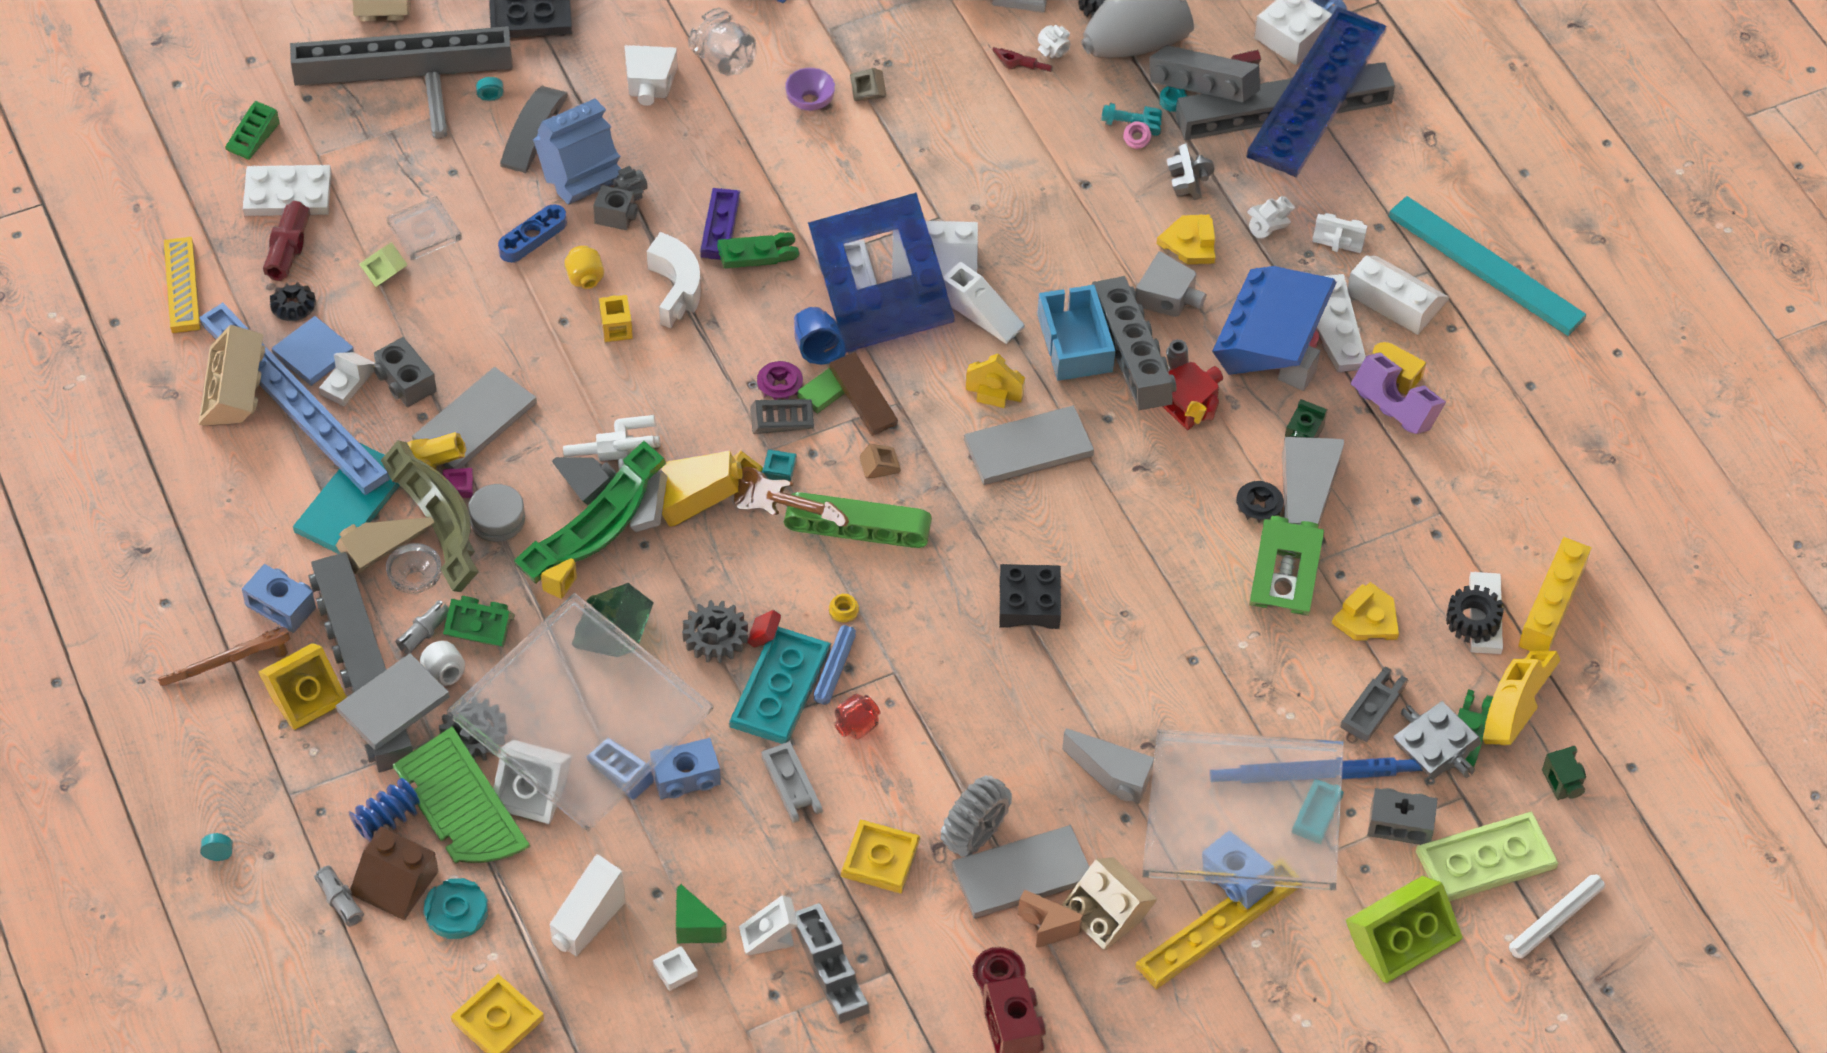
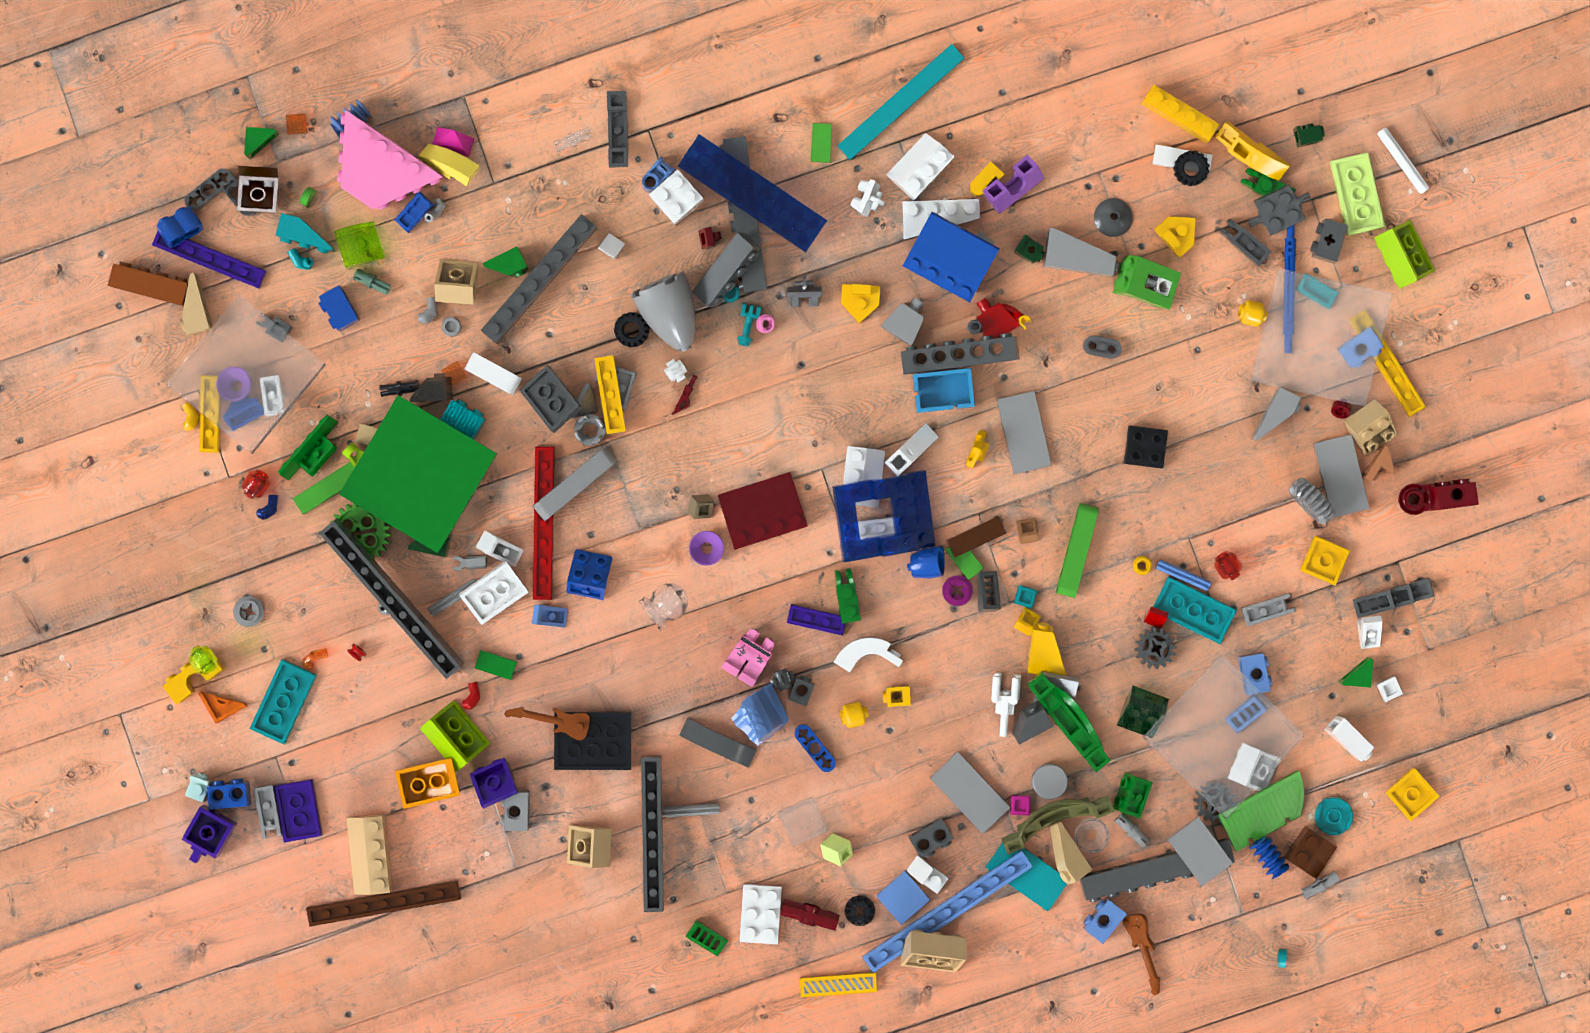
camera: 80 degrees left, 35 degrees up
(303, 685) = (1171, 906): yellow slope -> none
(438, 450) = (1003, 819): yellow piece -> none
(443, 662) = (1163, 819): white head -> none
(489, 88) = (683, 772): teal tile -> none
(559, 578) = (1108, 744): yellow slope -> none
(650, 71) = (679, 659): white torso -> none
(658, 147) = (749, 651): none -> bright pink hips
(759, 491) = (1054, 610): piece -> none
(867, 150) = (762, 510): none -> dark red slope
(1132, 856) = (1341, 409): none -> dark red tile
(1175, 531) = (1102, 347): none -> flat silver plate
(1263, 492) = (1087, 280): black gear -> none
(1265, 716) = (1252, 313): none -> yellow head
(1270, 216) = (853, 243): white hips -> none
(1373, 542) = (1106, 224): none -> dark grey dish
(1405, 180) = (821, 143): none -> bright green tile

